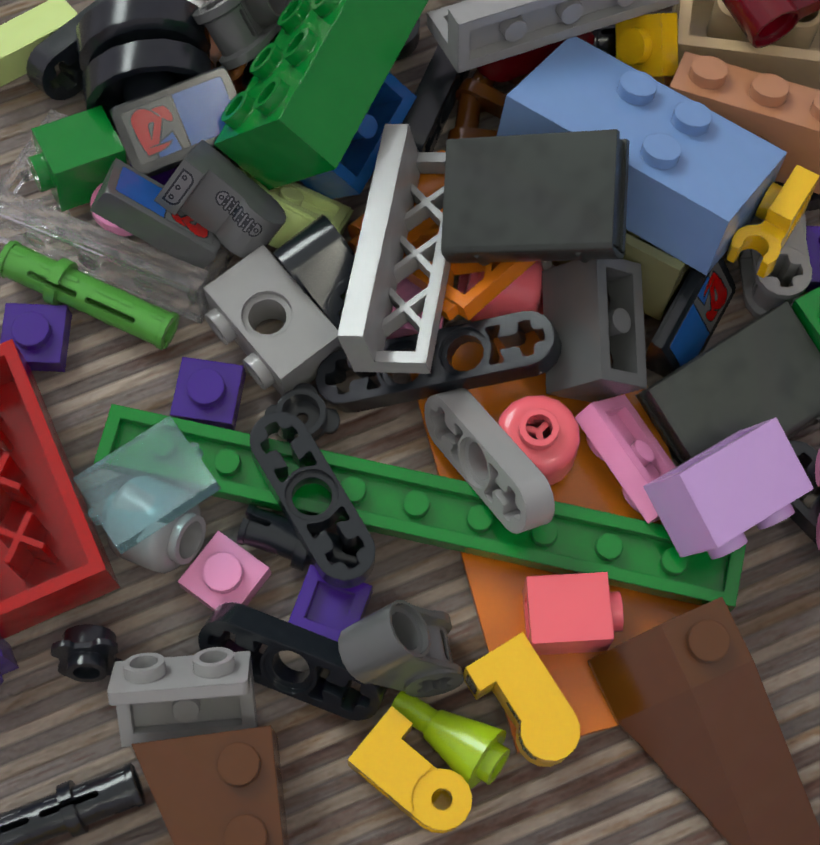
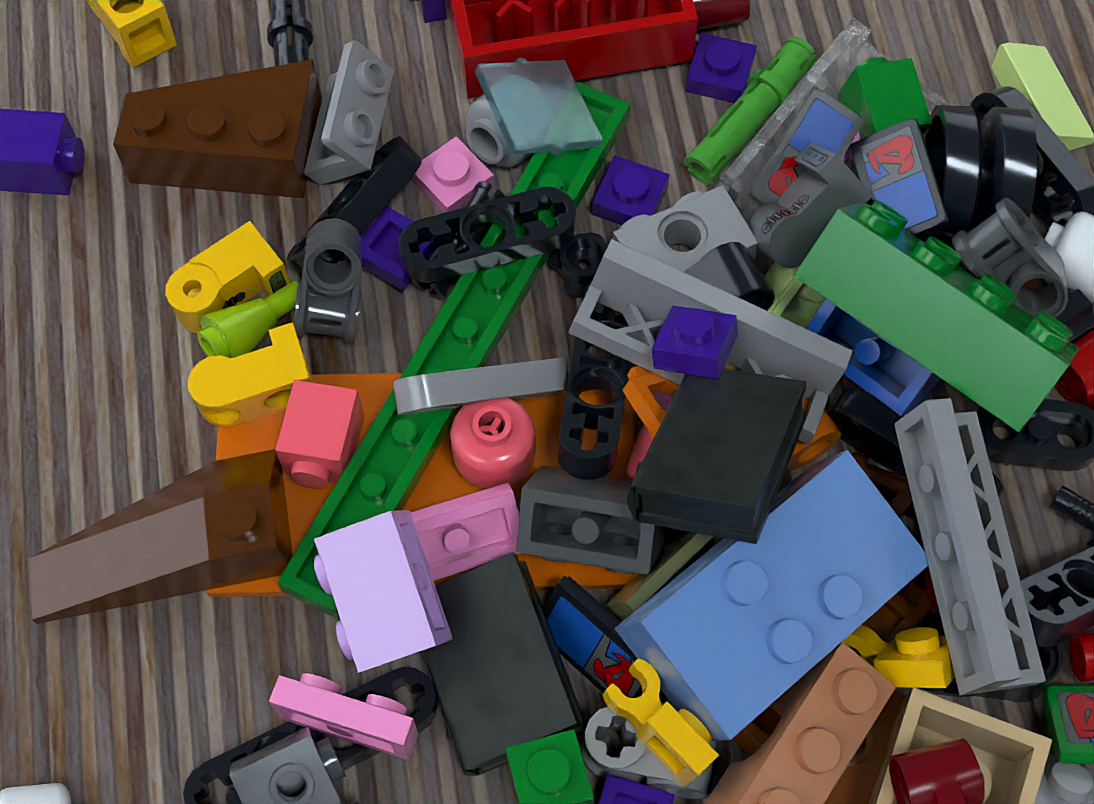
camera: 105 degrees right, 5 degrees down
(86, 652) = (412, 60): black plate -> none
(421, 248) = (695, 342): none -> dark purple plate

